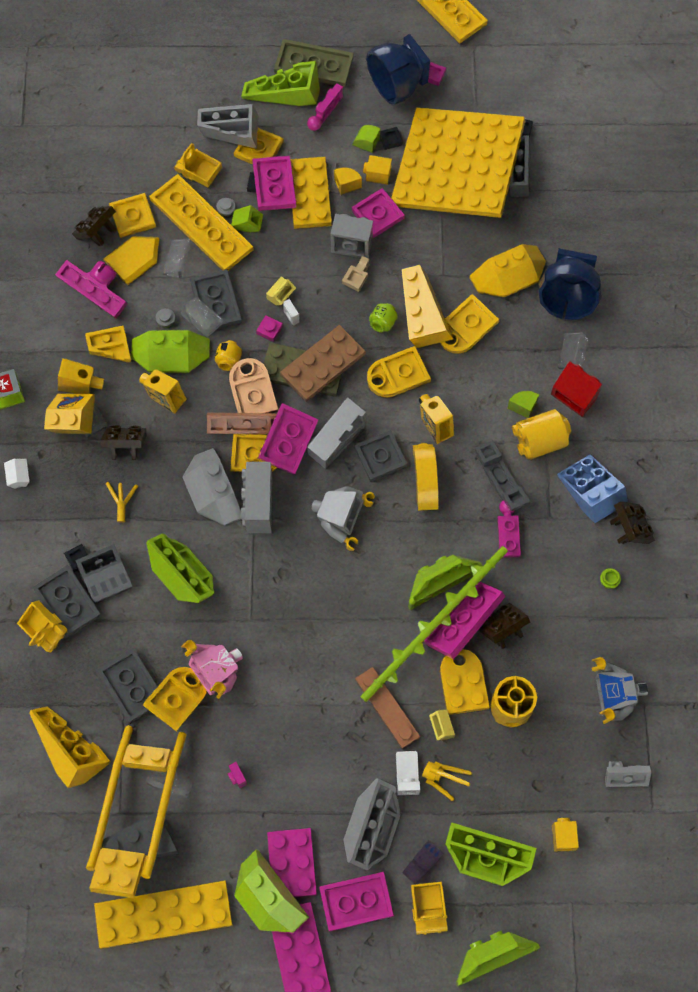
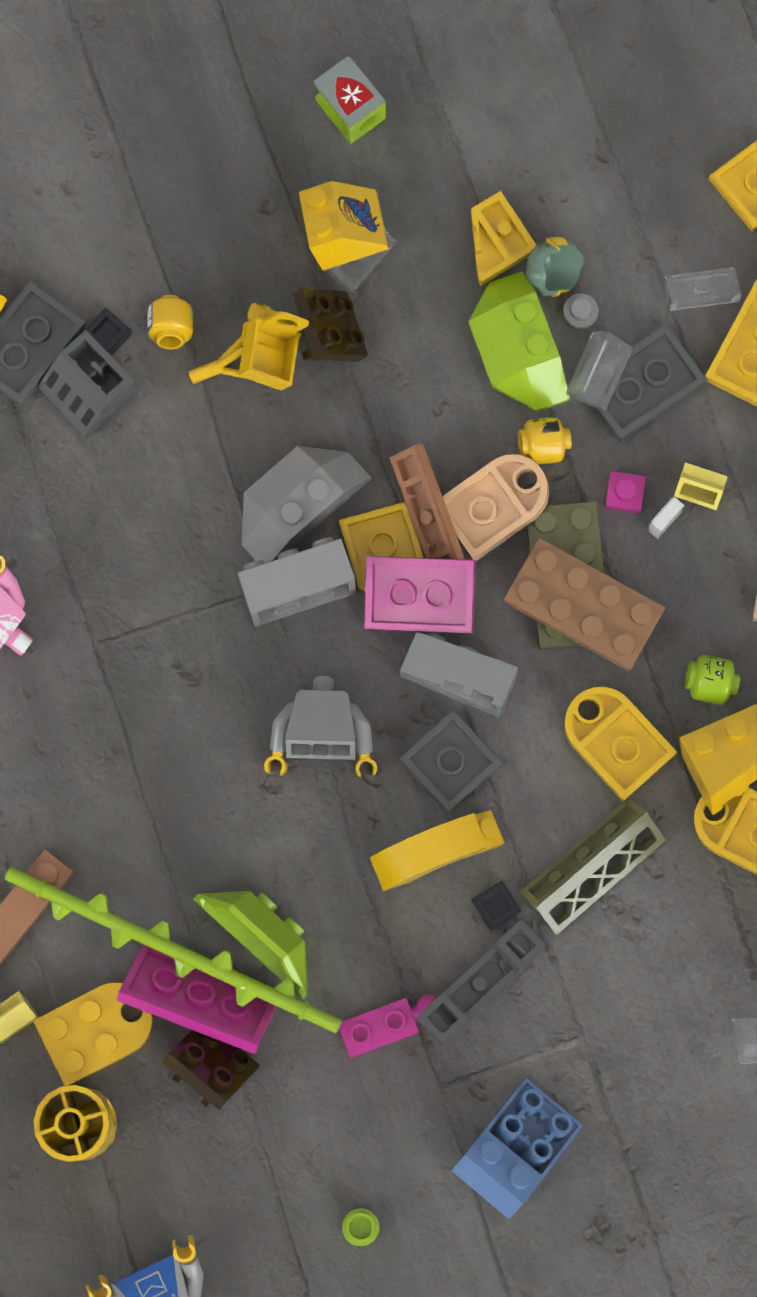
camera: 75 degrees right, 10 degrees up
(16, 473) = (215, 179): white piece -> none
(77, 378) = (411, 198): yellow torso -> none
(86, 520) = (170, 322): none -> yellow head
(93, 285) = (595, 171): dark pink plate -> none
(96, 219) = (710, 125): dark brown plate -> none
(123, 468) = (270, 346): none -> yellow piece
(134, 257) = (677, 216): yellow tile -> none
(137, 320) = (554, 266): none -> sand green hair
(163, 390) = (440, 356): yellow torso -> none
(179, 569) = (134, 503): lime wedge -> none
(436, 418) = (544, 838): yellow torso -> none
(448, 392) = (589, 860): none -> olive fence
(463, 459) = (496, 905): none -> black tile
(523, 403) = (635, 978): lime brick -> none
(542, 434) = (581, 1028): yellow cylinder -> none
(576, 389) = (690, 1064): red slope -> none
(634, 523) = (468, 1239): dark brown plate -> none

